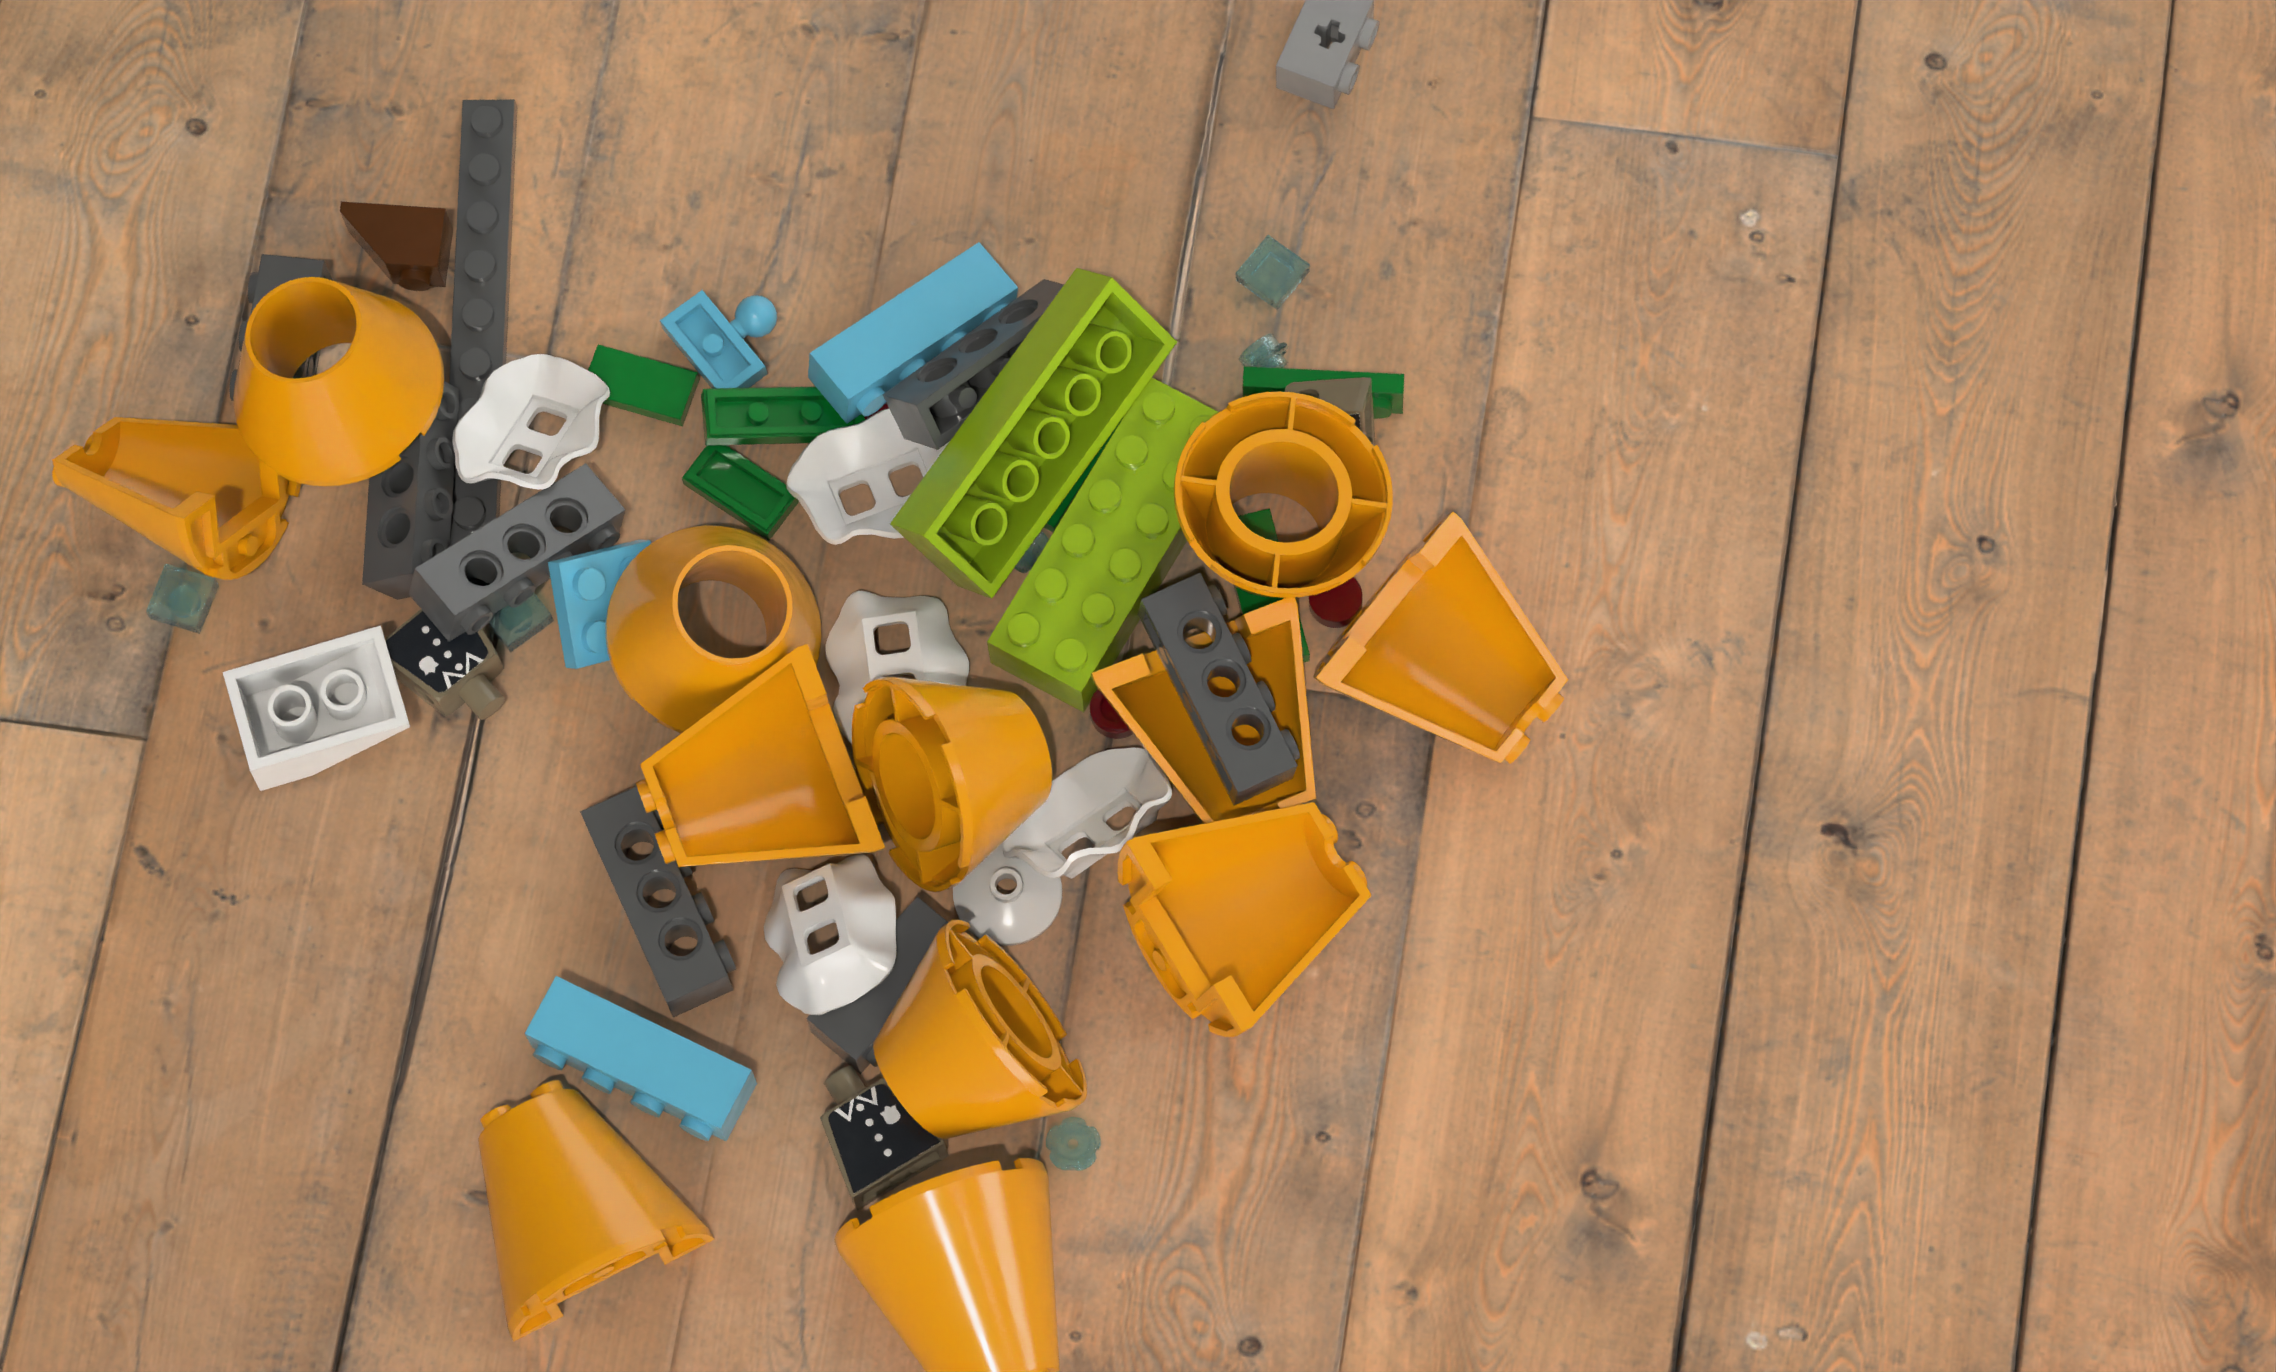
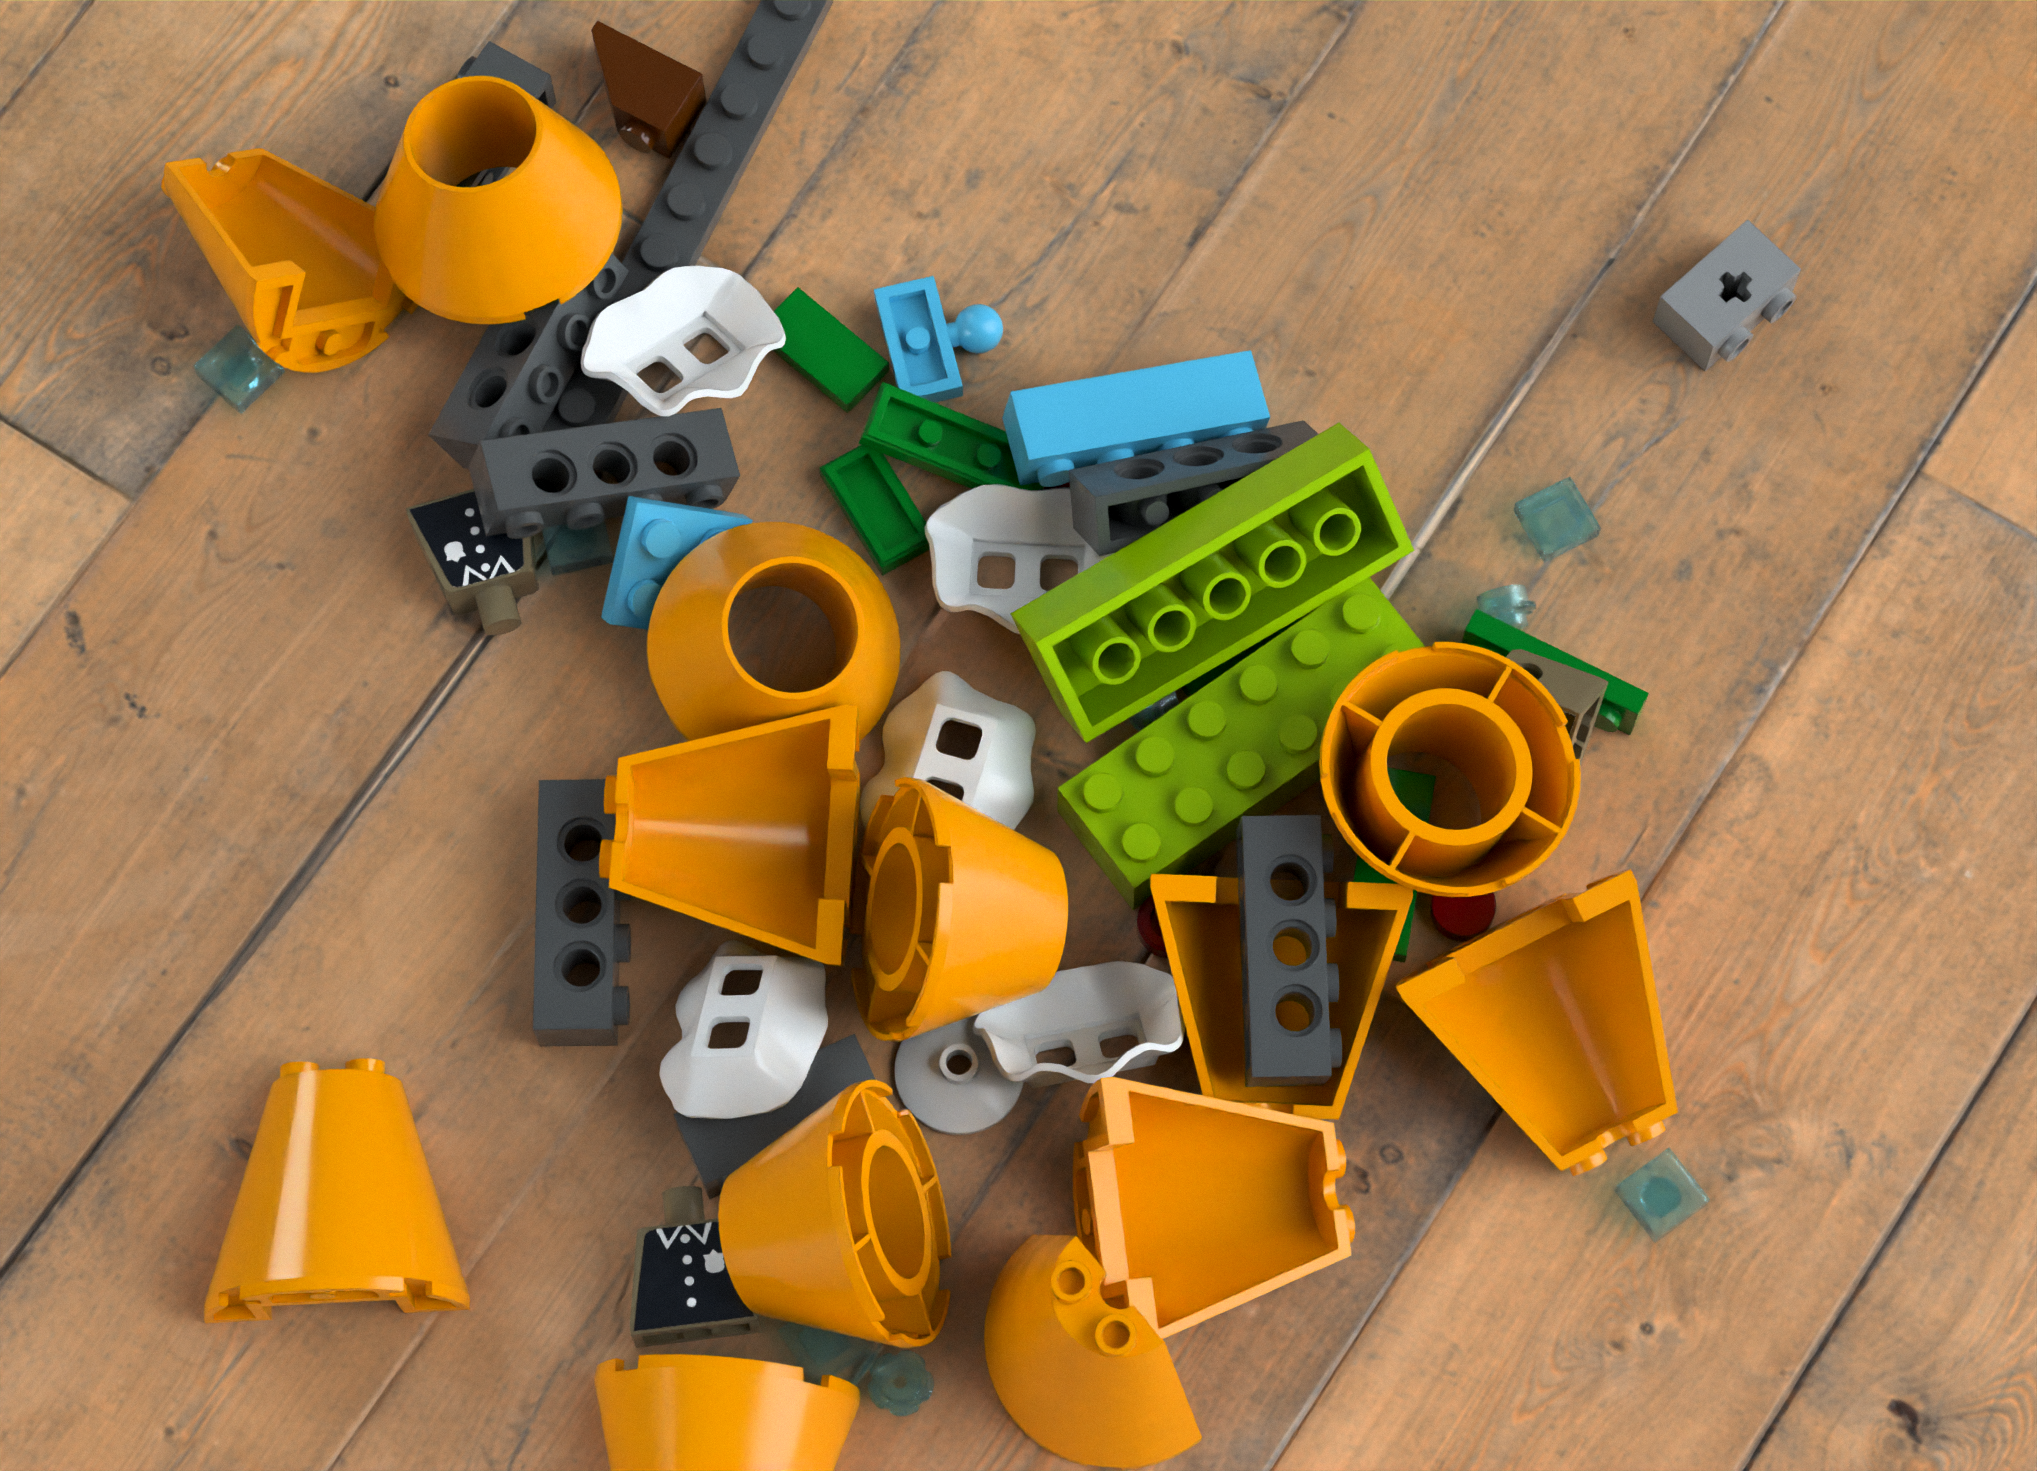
camera: 20 degrees right, 0 degrees up
(315, 706) = (315, 543): white slope -> none
(640, 1059) = (480, 1078): medium azure brick -> none
(1001, 1144) = (822, 1351): none -> clear light blue plate
(1205, 1065) = (1077, 1371): none -> light orange cone
(1583, 748) = (1662, 1195): none -> clear light blue plate

